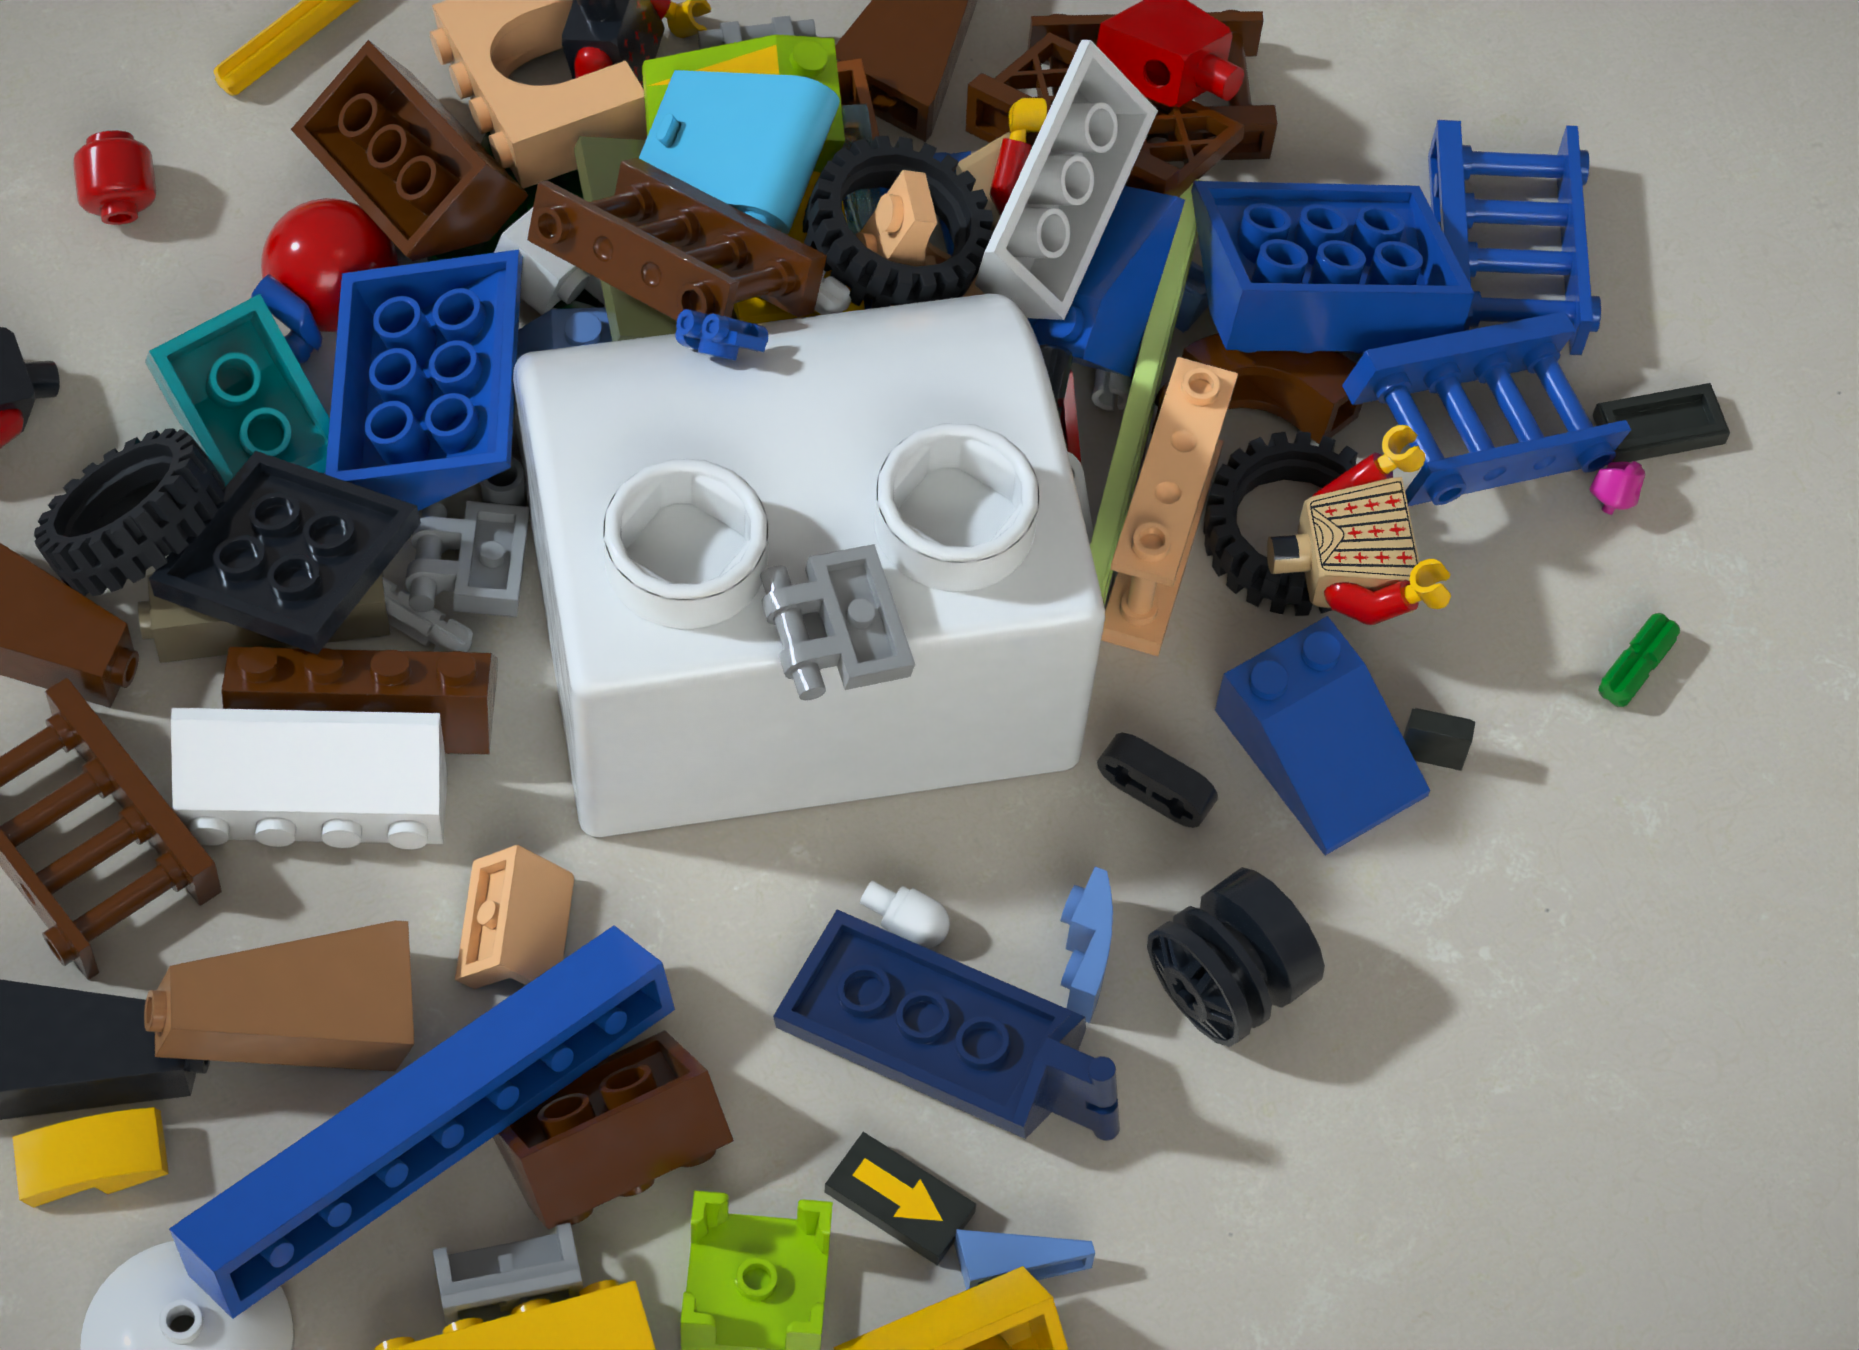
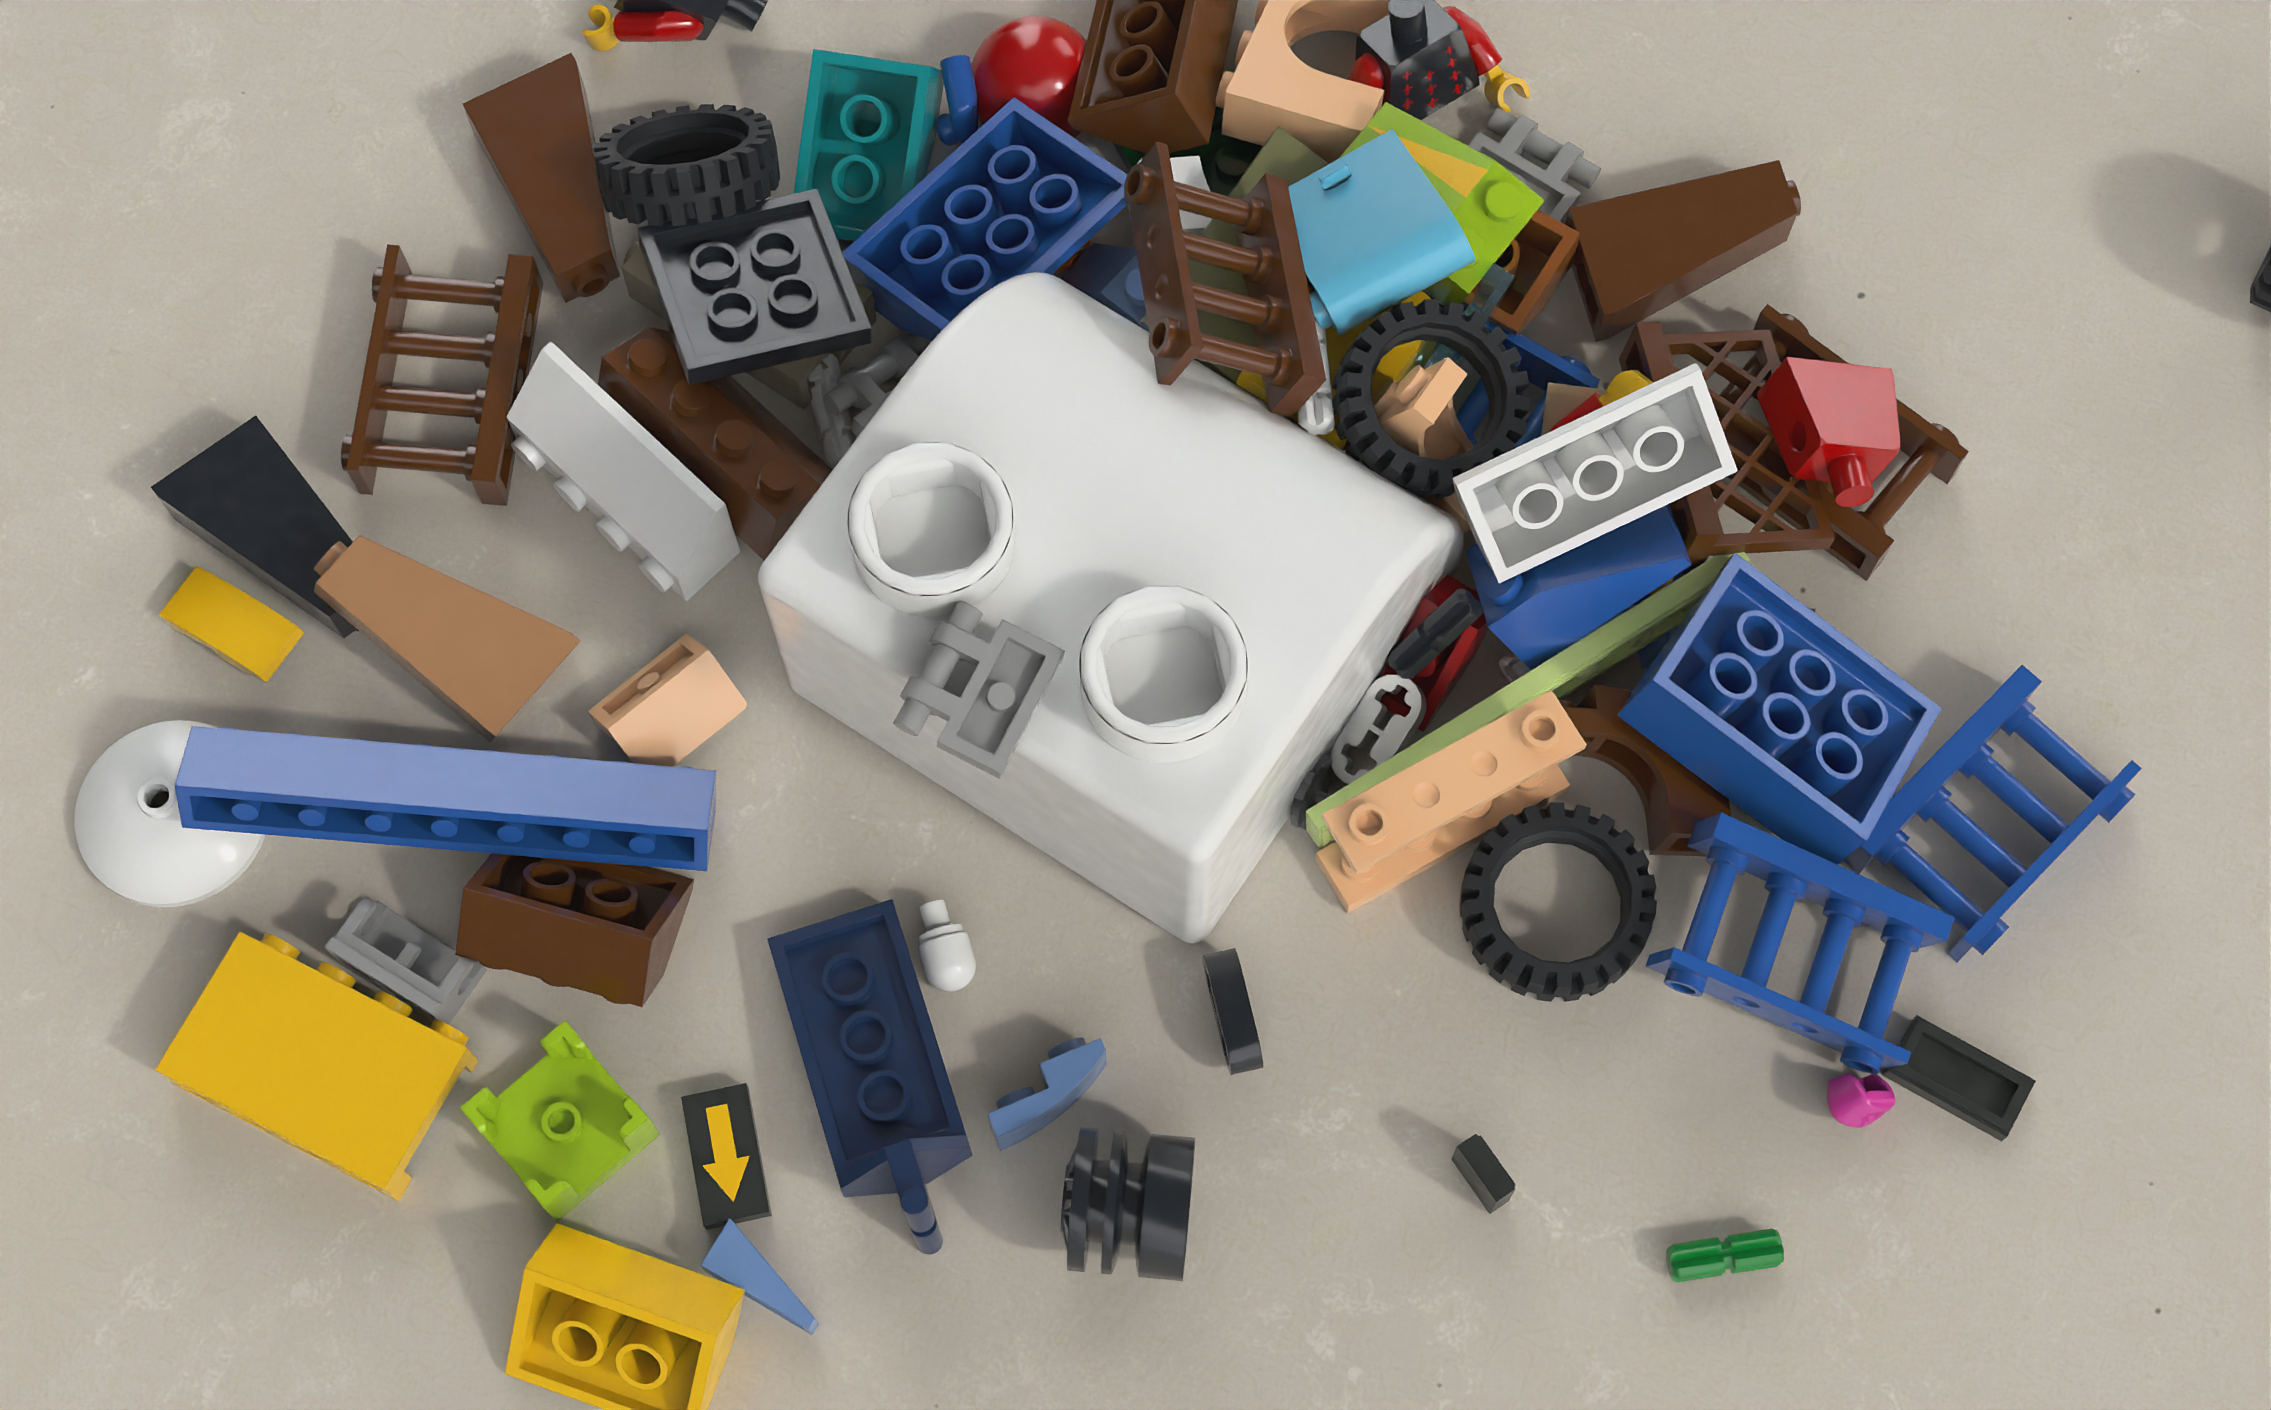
camera: 50 degrees right, 10 degrees up
(719, 334) = (1146, 381): blue piece -> none
(1321, 735) = (1396, 1092): blue slope -> none
(1361, 541) = (1564, 964): torso -> none

